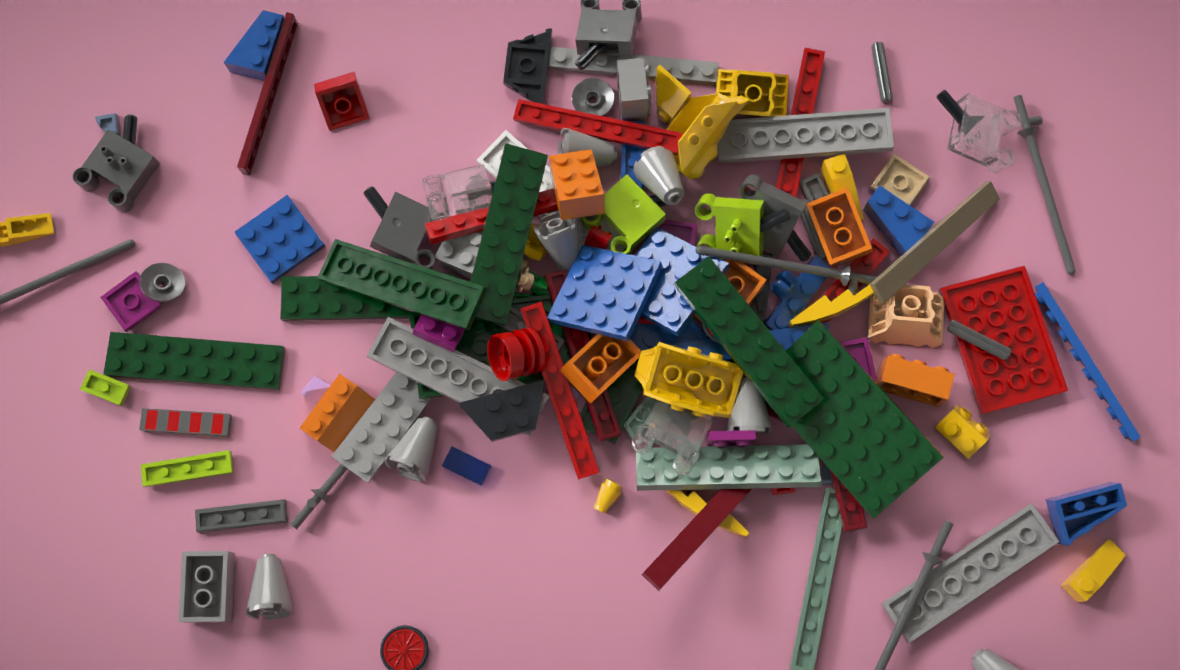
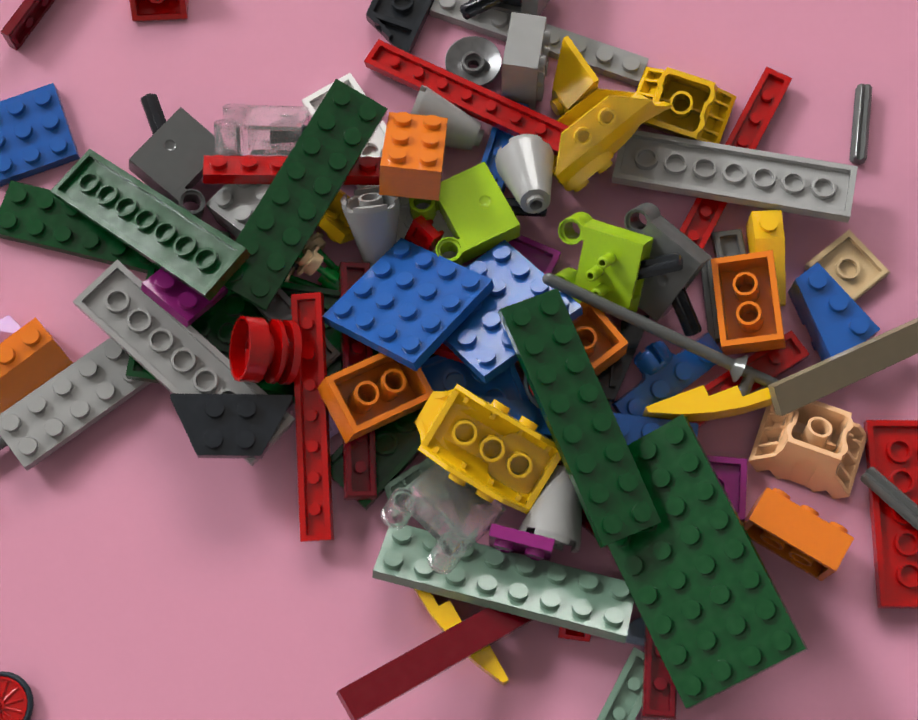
camera: 15 degrees right, 5 degrees down
(414, 450) = (99, 443): light grey cone -> none
(466, 466) = (162, 483): clear blue tile -> none
(607, 495) = (334, 574): yellow cone -> none
(963, 431) = (847, 623): yellow bracket -> none

